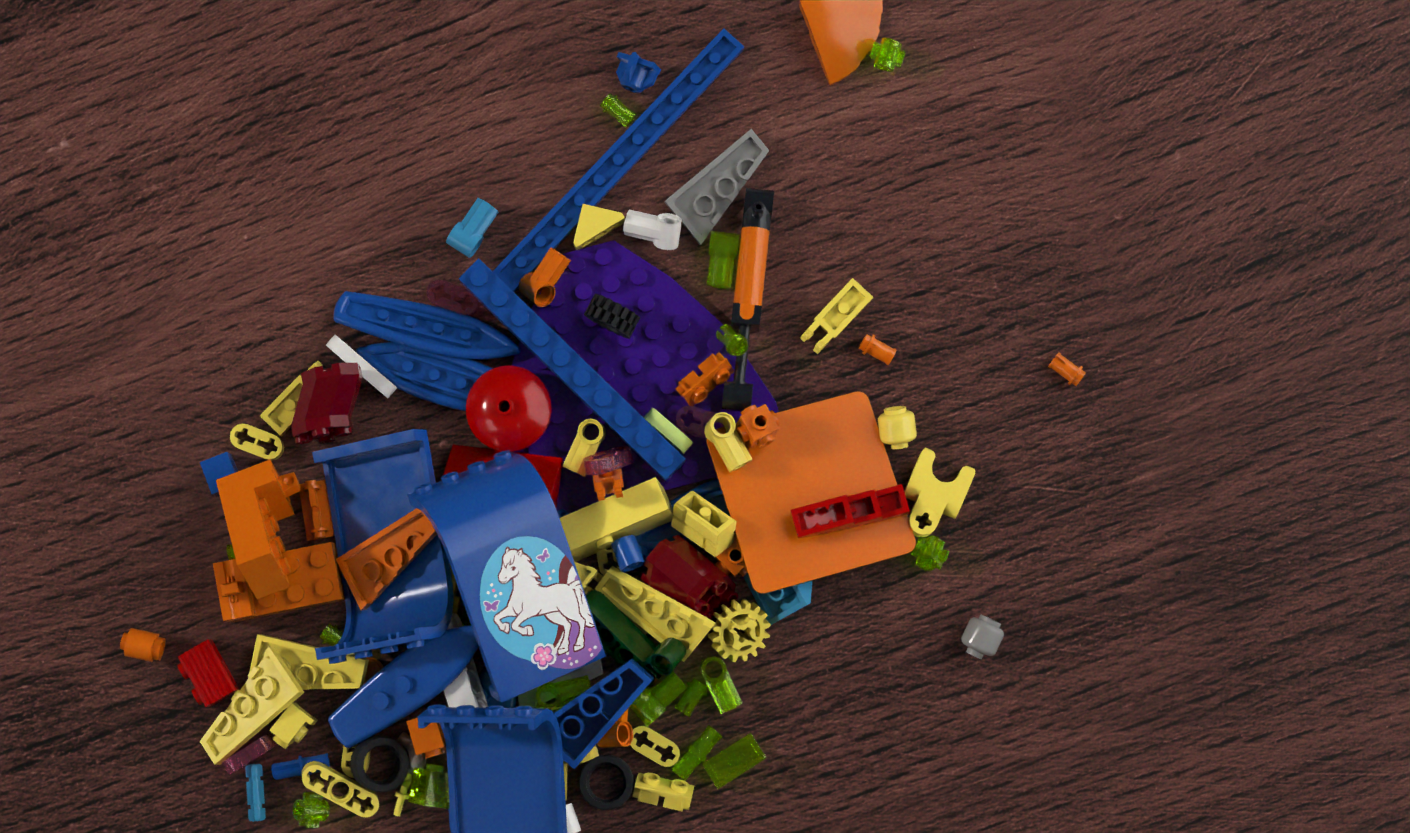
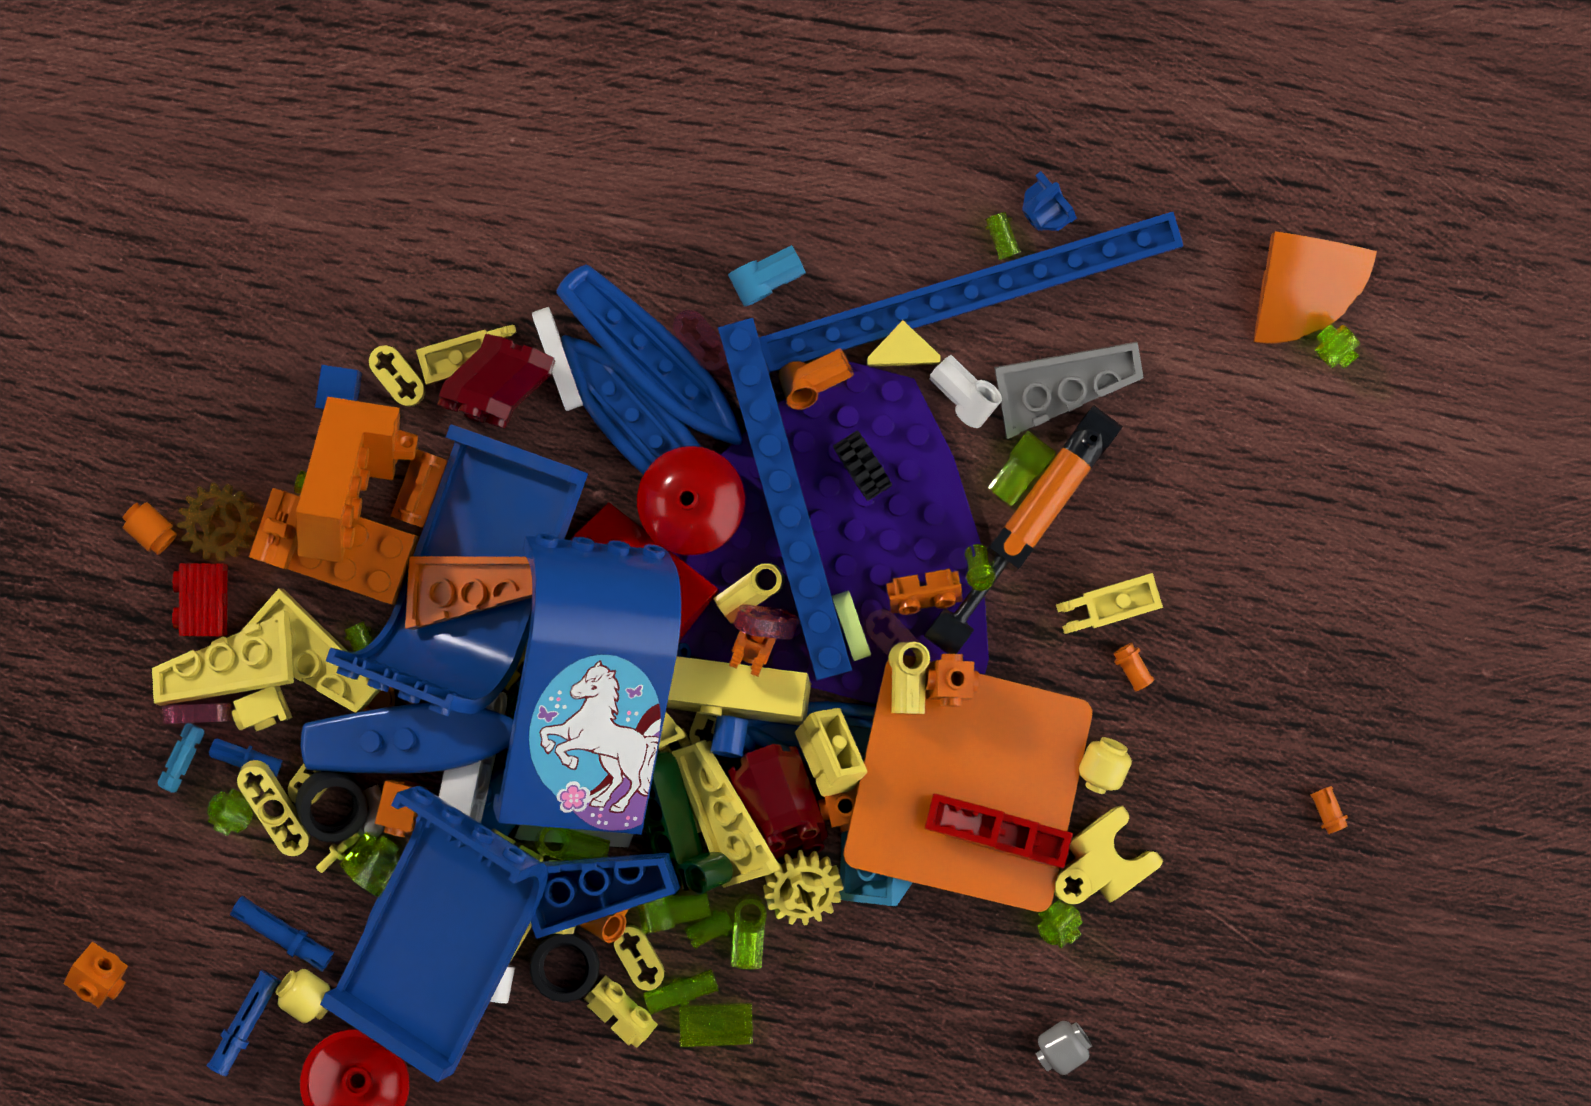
camera: 35 degrees right, 5 degrees up
(191, 626) = (211, 537): none -> clear yellow gear

